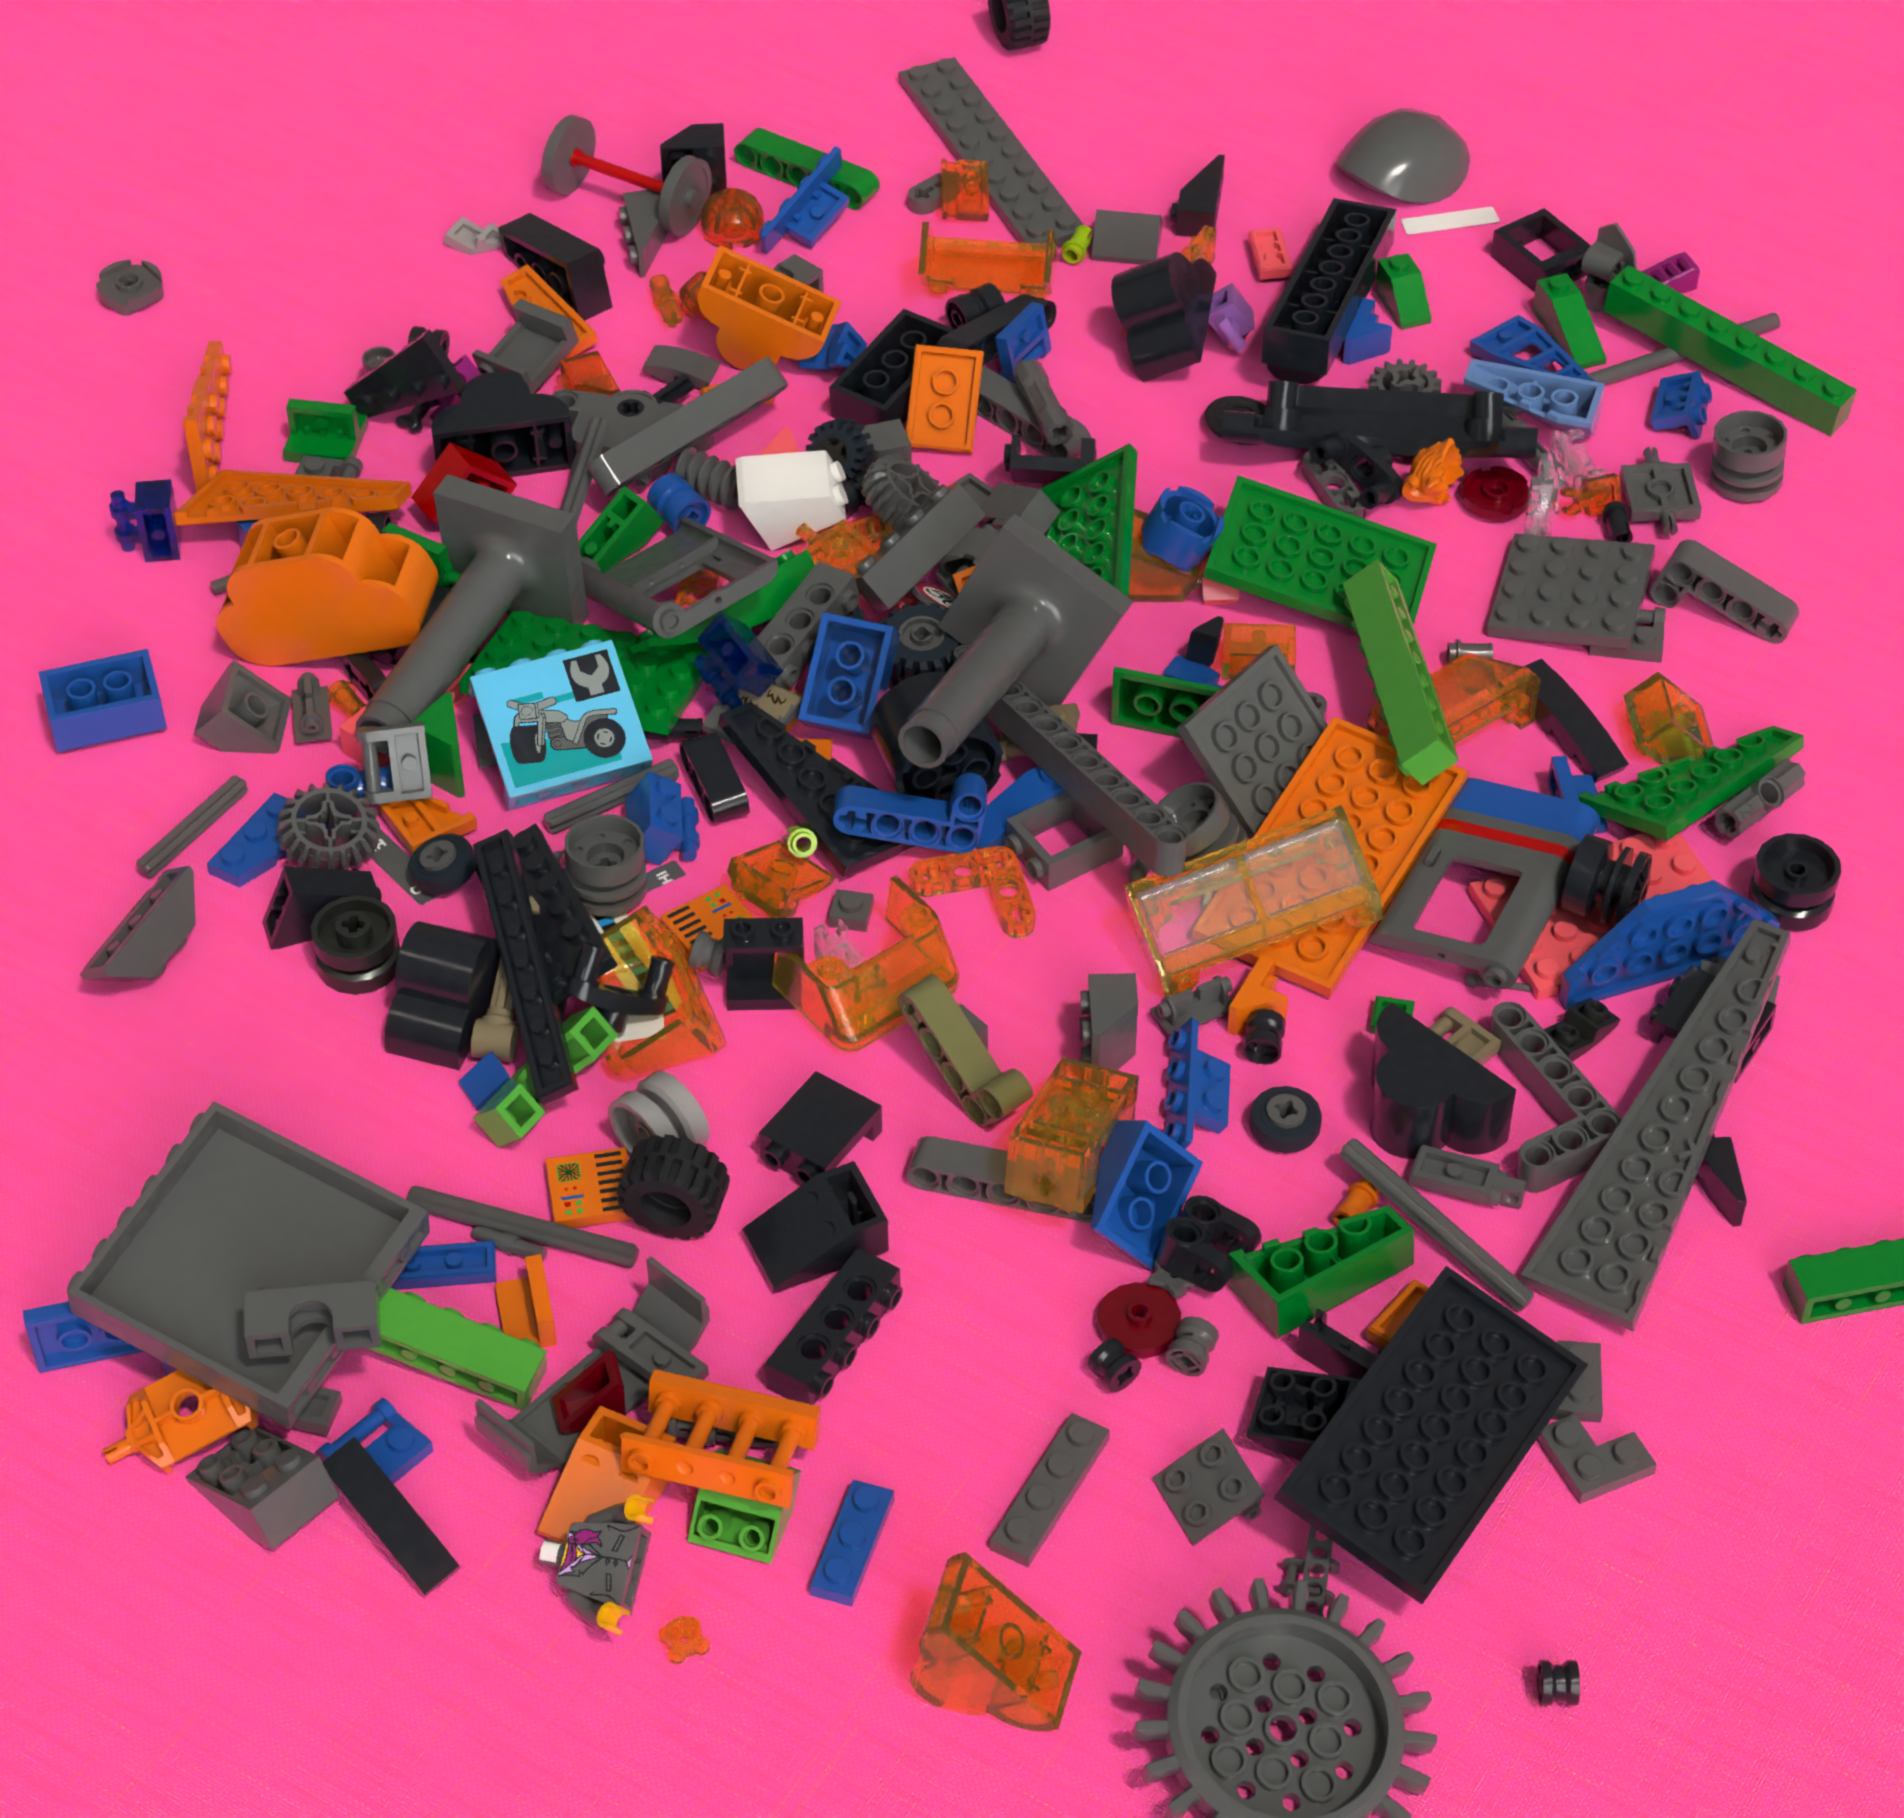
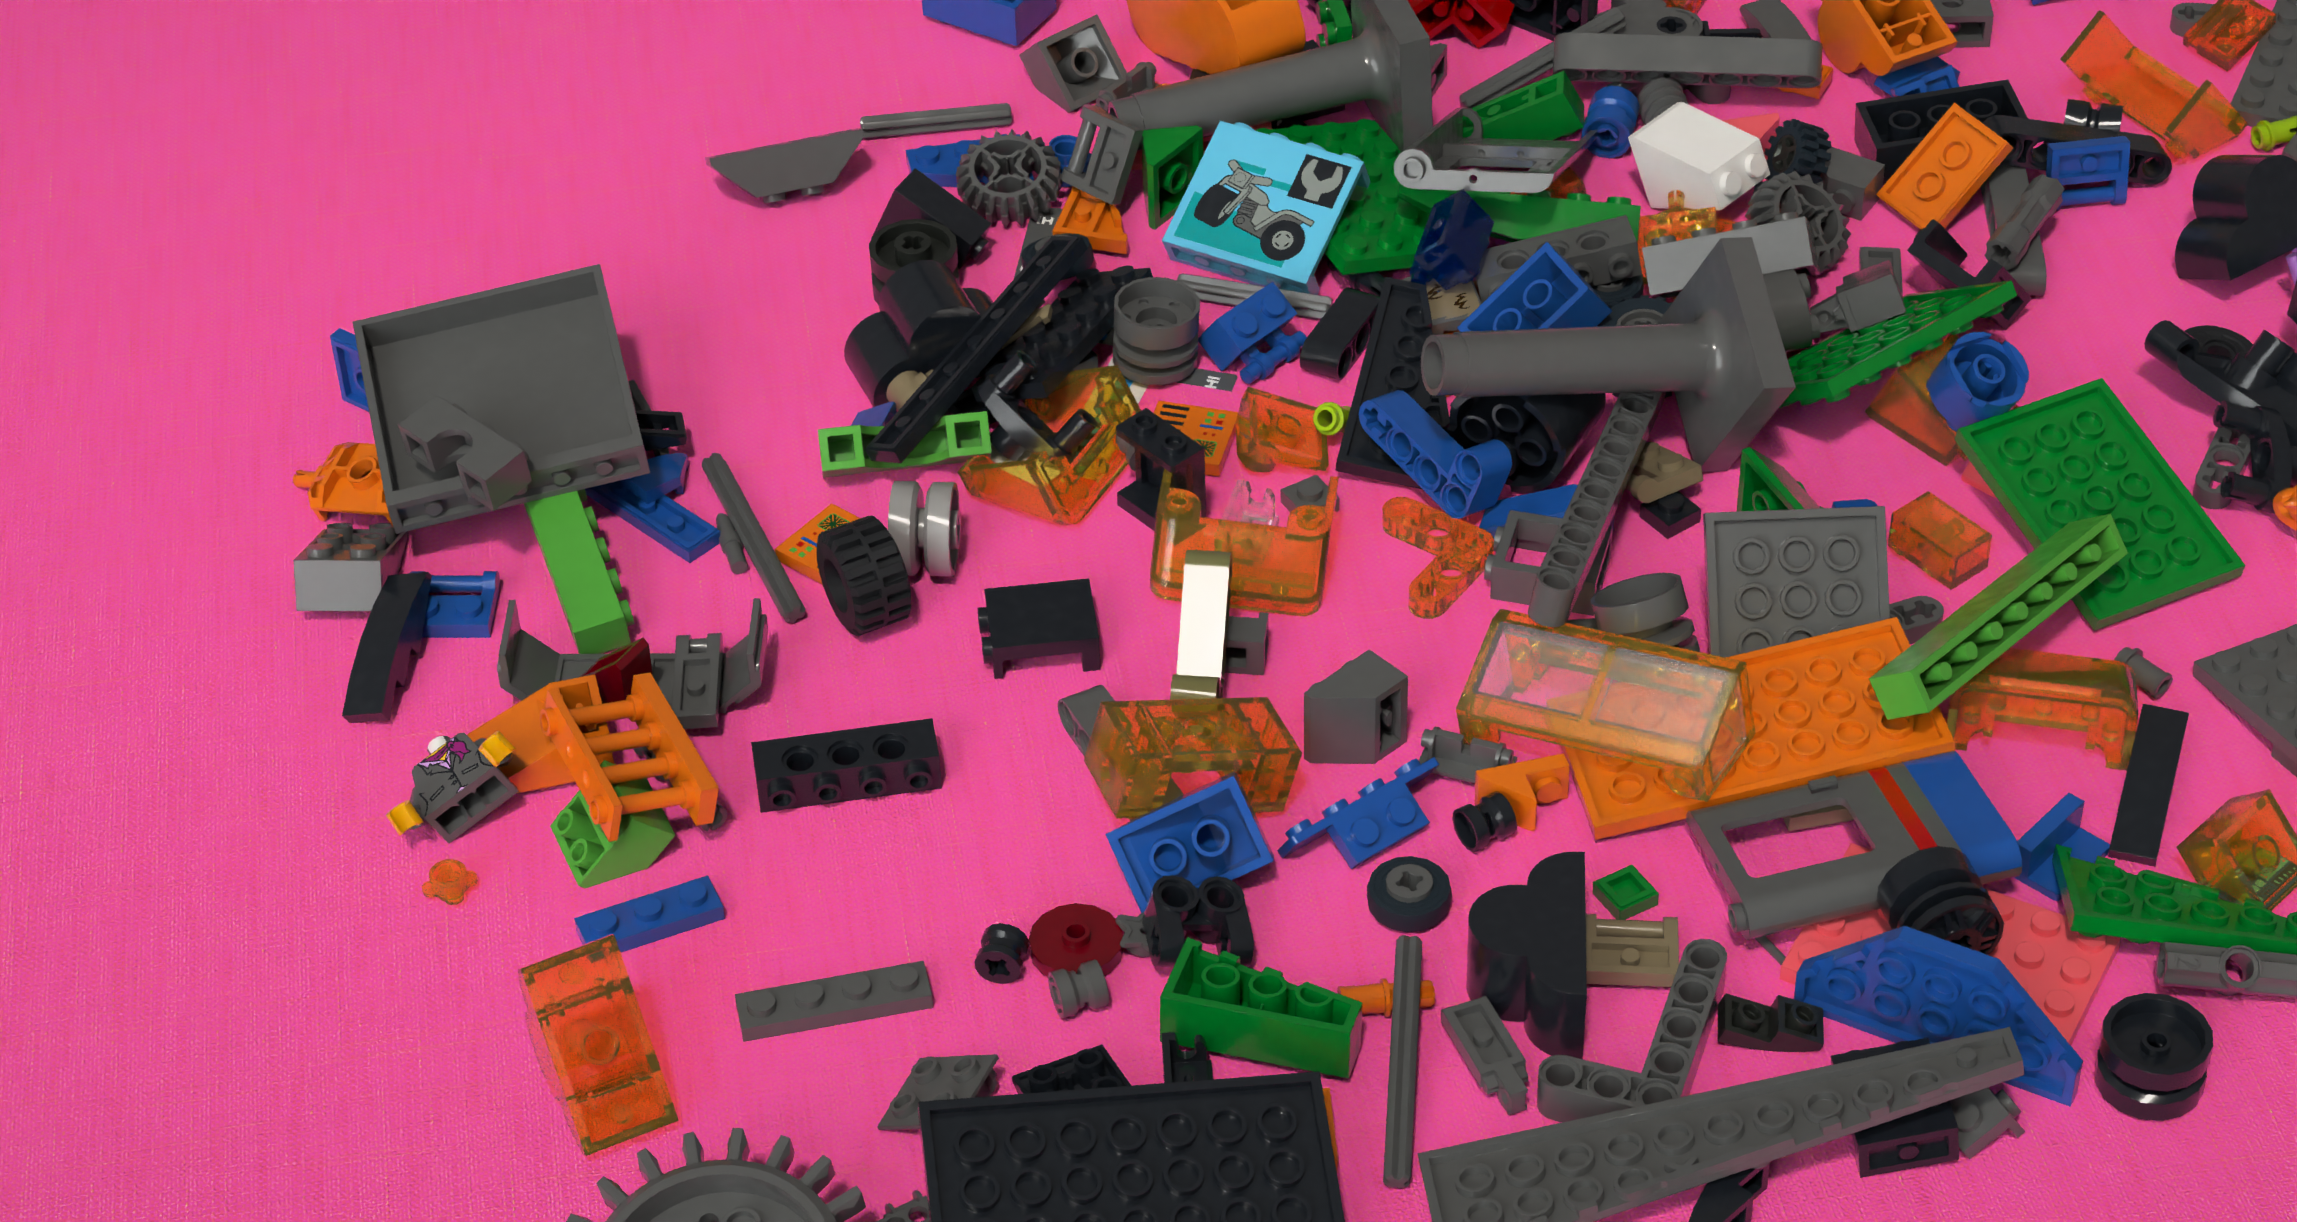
camera: 50 degrees right, 5 degrees down
(320, 1412) = (450, 546): dark grey plate -> none
(527, 1306) = (679, 592): orange panel -> none
(818, 1228) = (951, 683): black slope -> none
(1205, 641) = (1897, 492): black slope -> none

